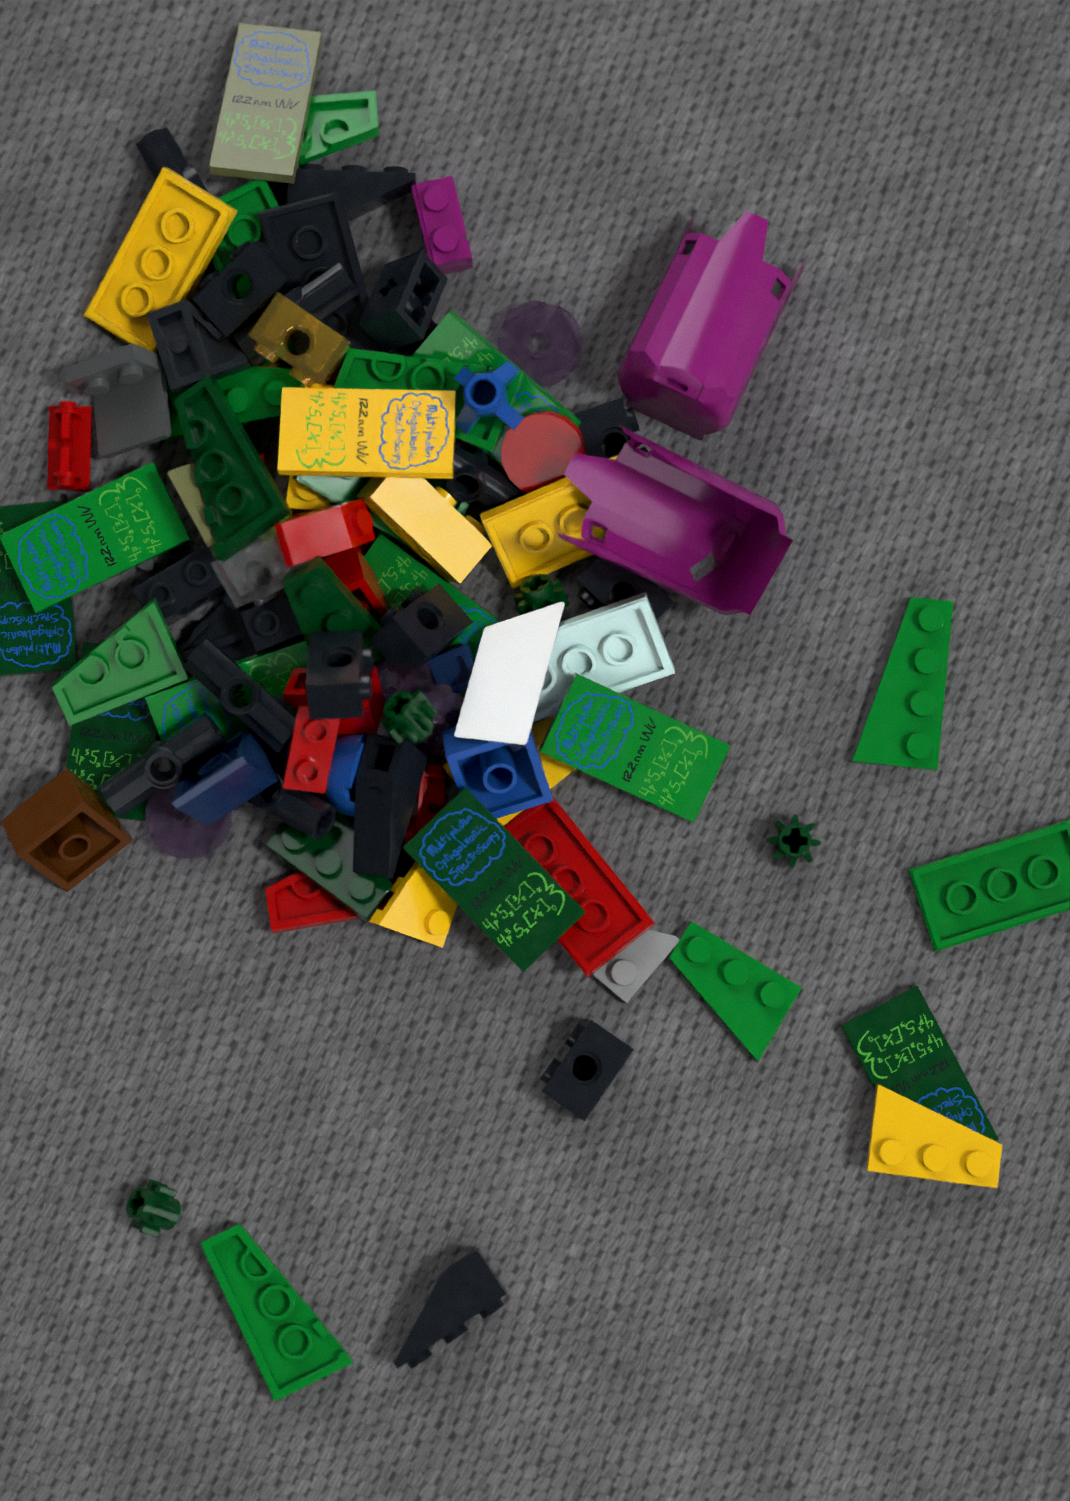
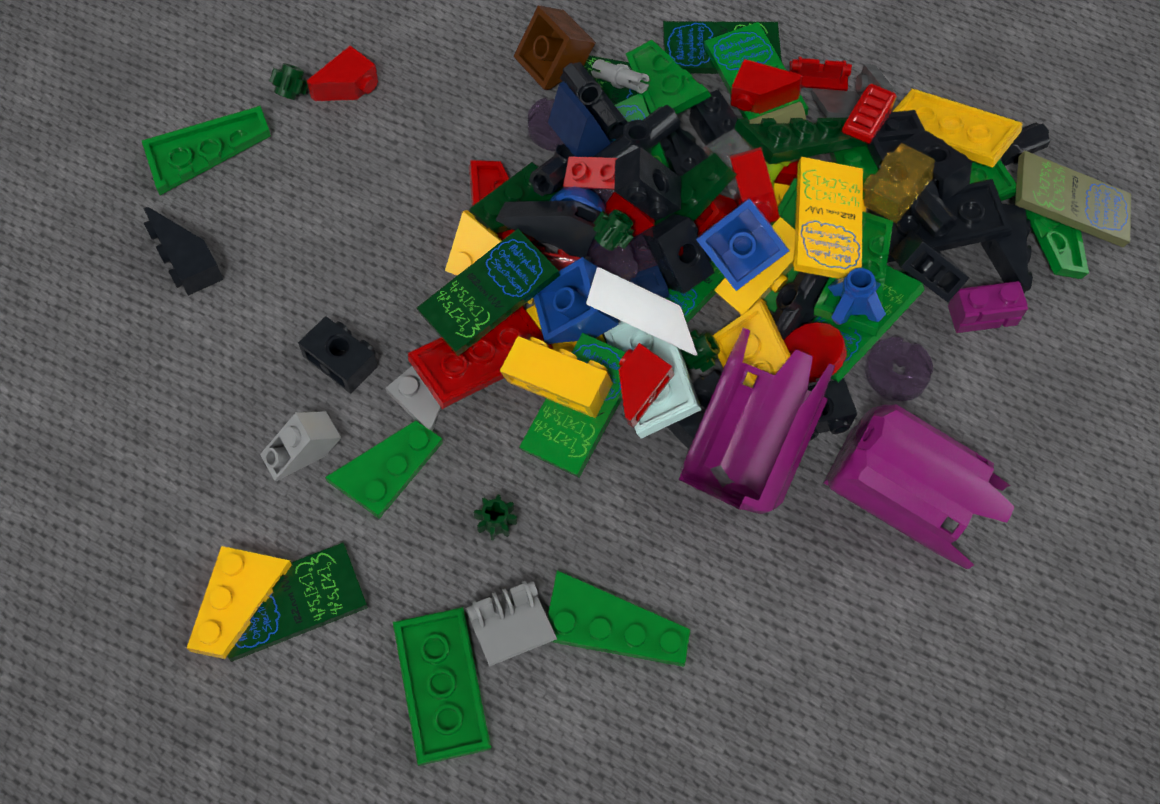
camera: 90 degrees right, 20 degrees down
(116, 729) = (620, 76): none -> light grey pin
(133, 528) = (763, 87): none -> red slope
(137, 1127) = (344, 78): none -> red slope
(156, 368) = (871, 111): none -> red slope
(418, 542) = (742, 244): none -> blue slope
(609, 778) = (557, 375): none -> yellow brick
(618, 668) = (641, 380): none -> red slope
(719, 1098) = (300, 443): none -> light grey slope
(925, 810) = (510, 623): none -> light grey hinge

